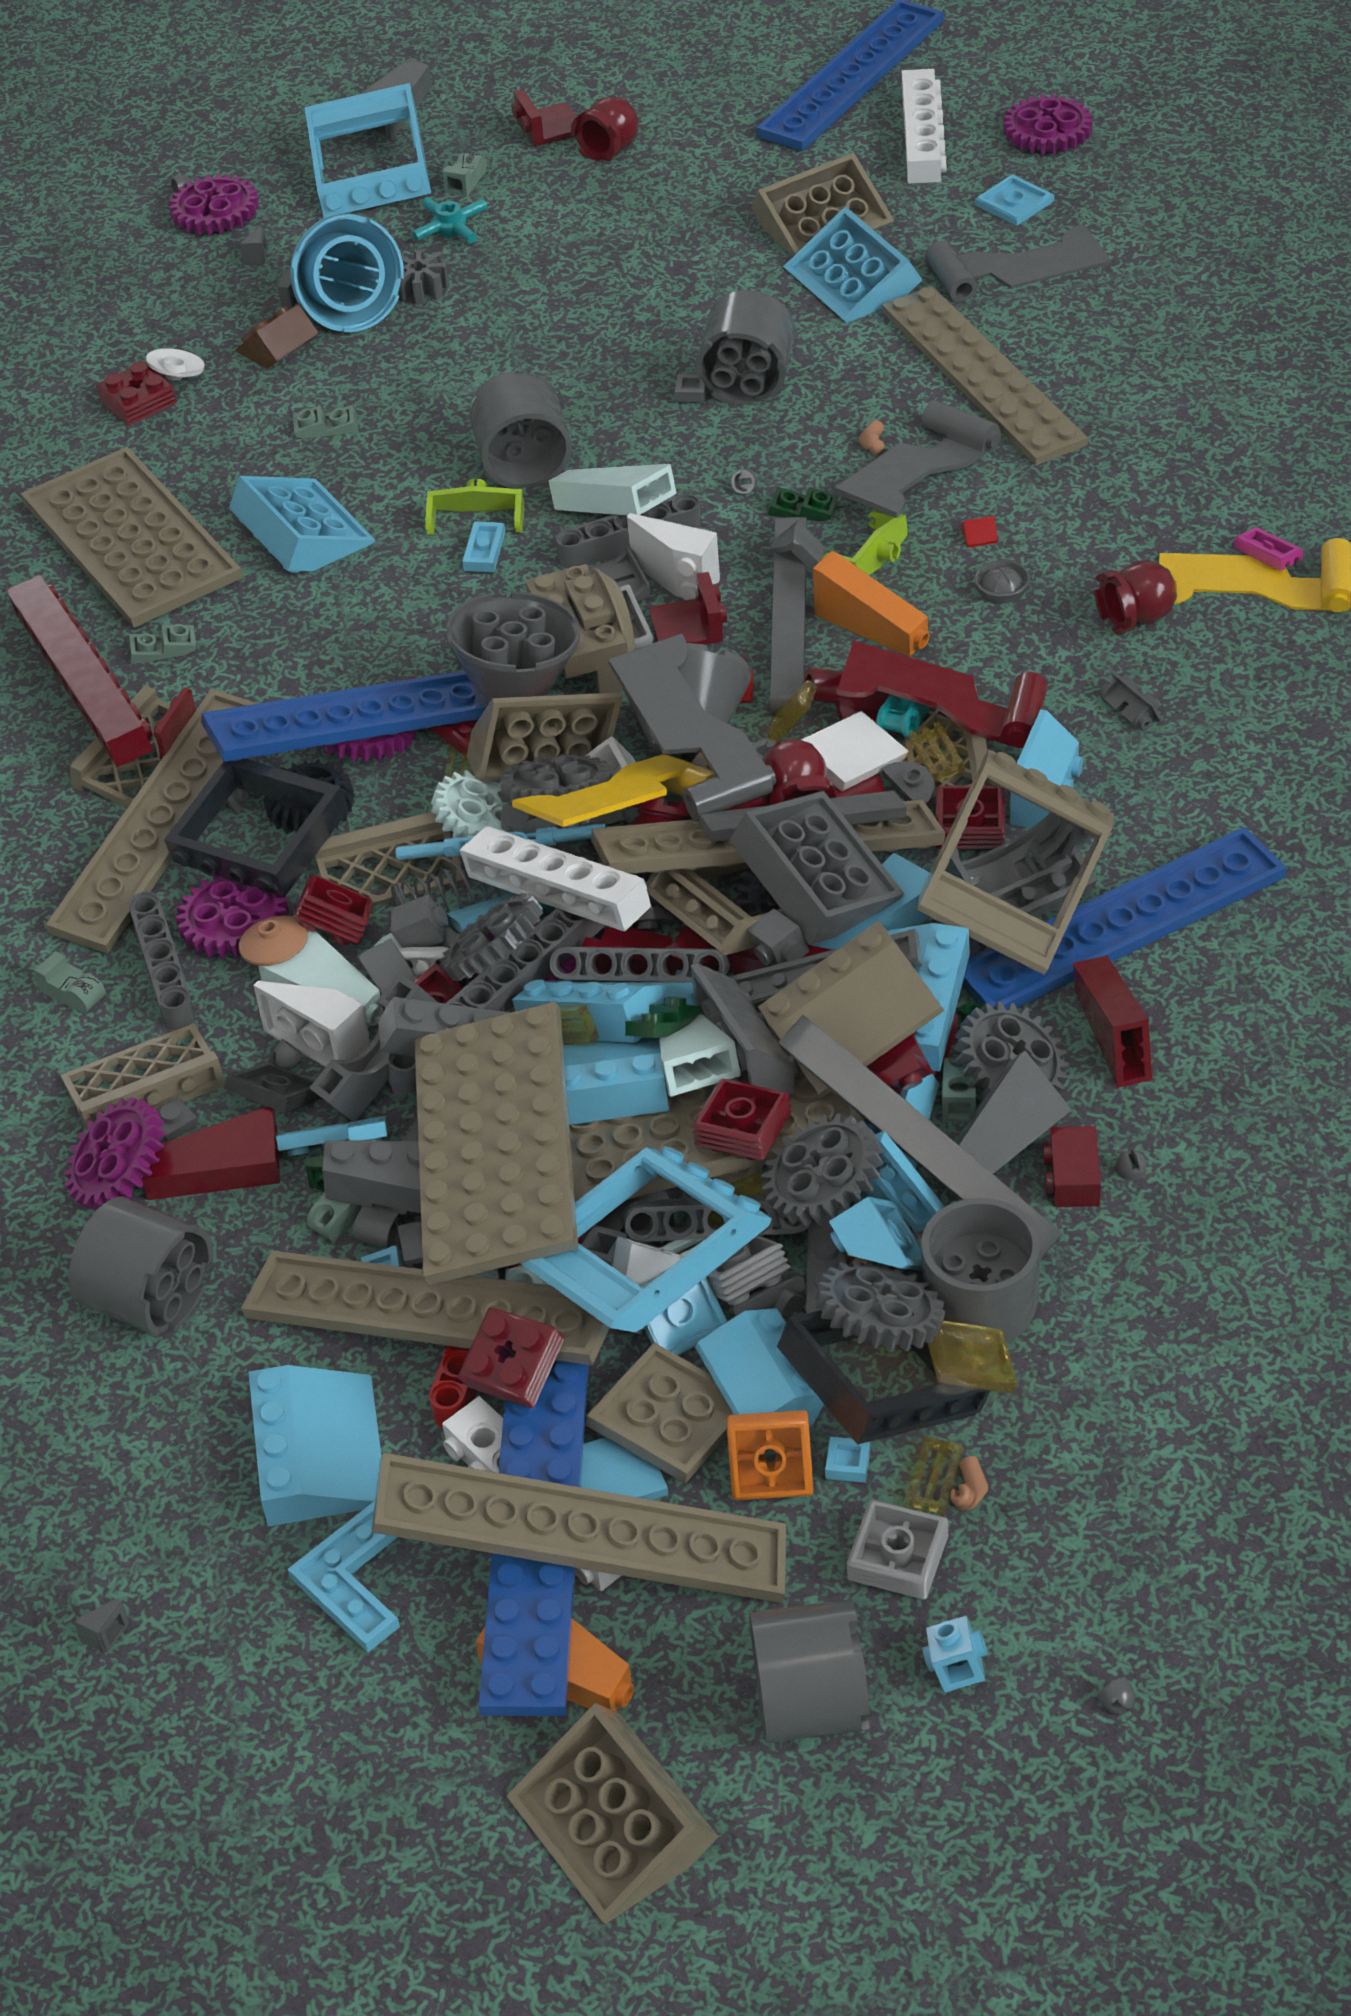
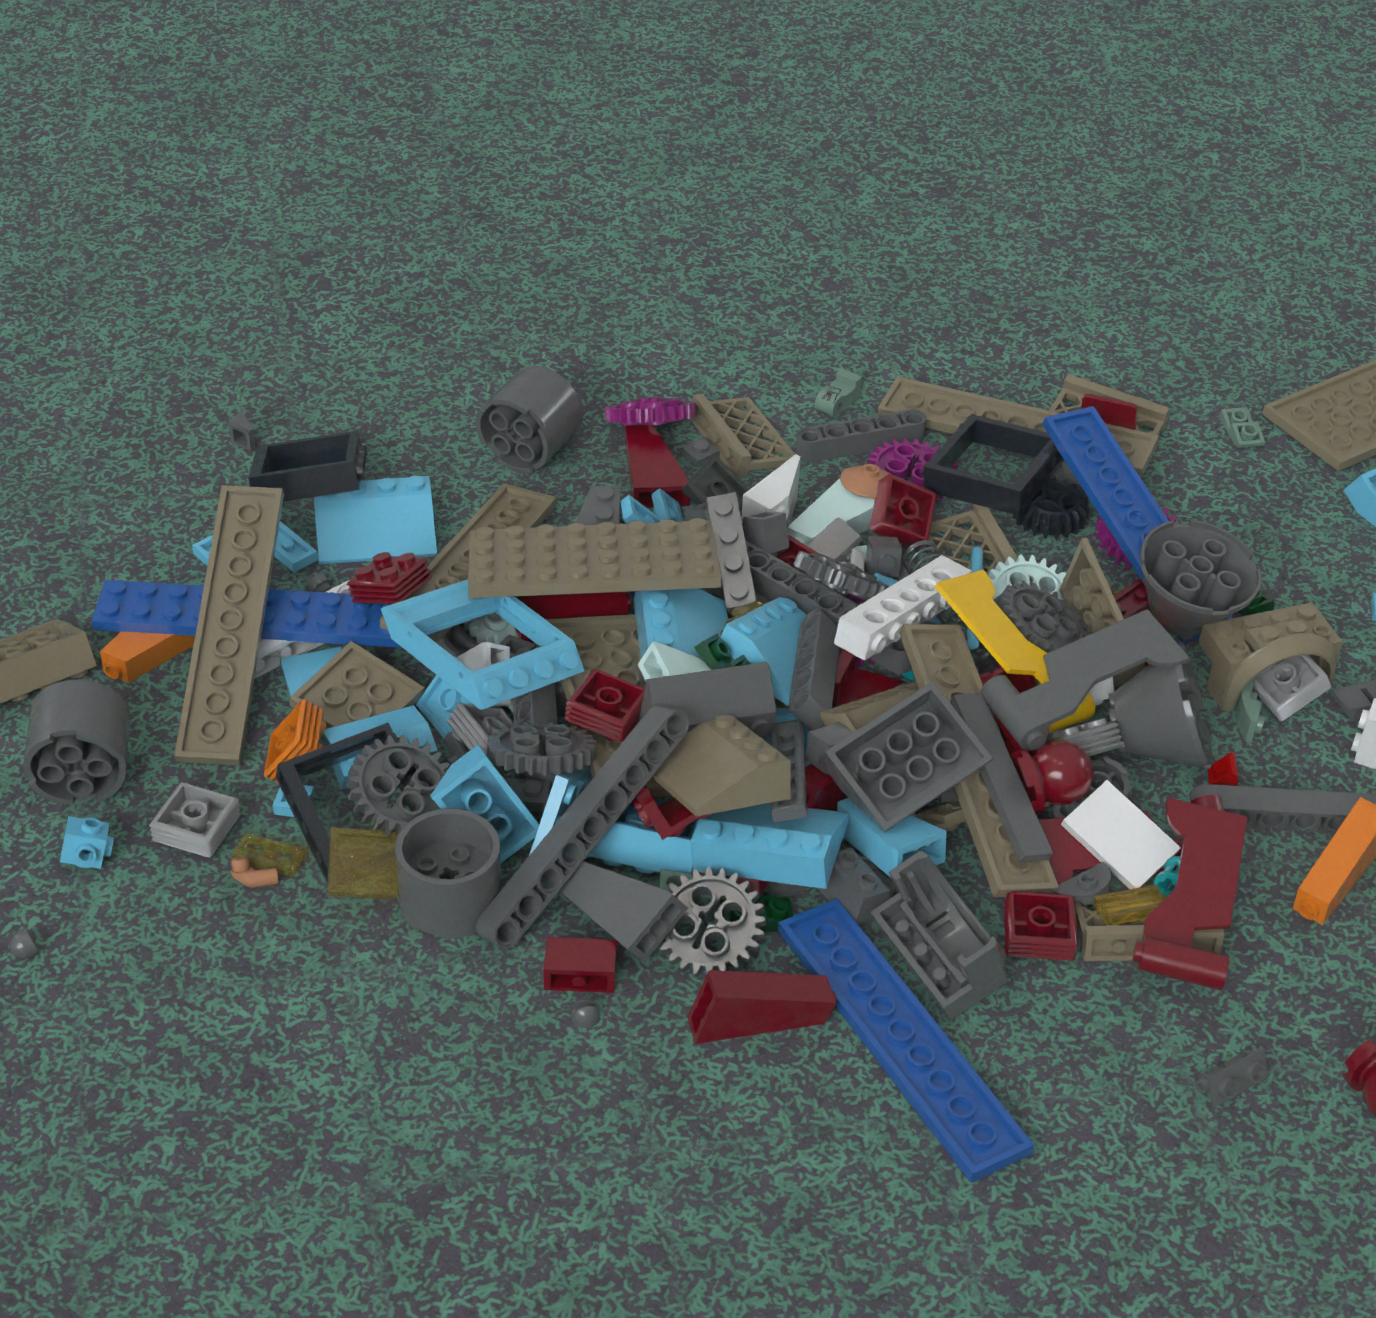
camera: 85 degrees right, 5 degrees down
(81, 670) = (1182, 369): brick -> none
(251, 1558) = (311, 465): none -> black window
(696, 619) = (1318, 743): dark red bracket -> none
(792, 711) = (1176, 788): clear yellow tile -> none
(988, 917) = (861, 884): dark tan window -> none
(1053, 753) = (1097, 976): medium azure slope -> none

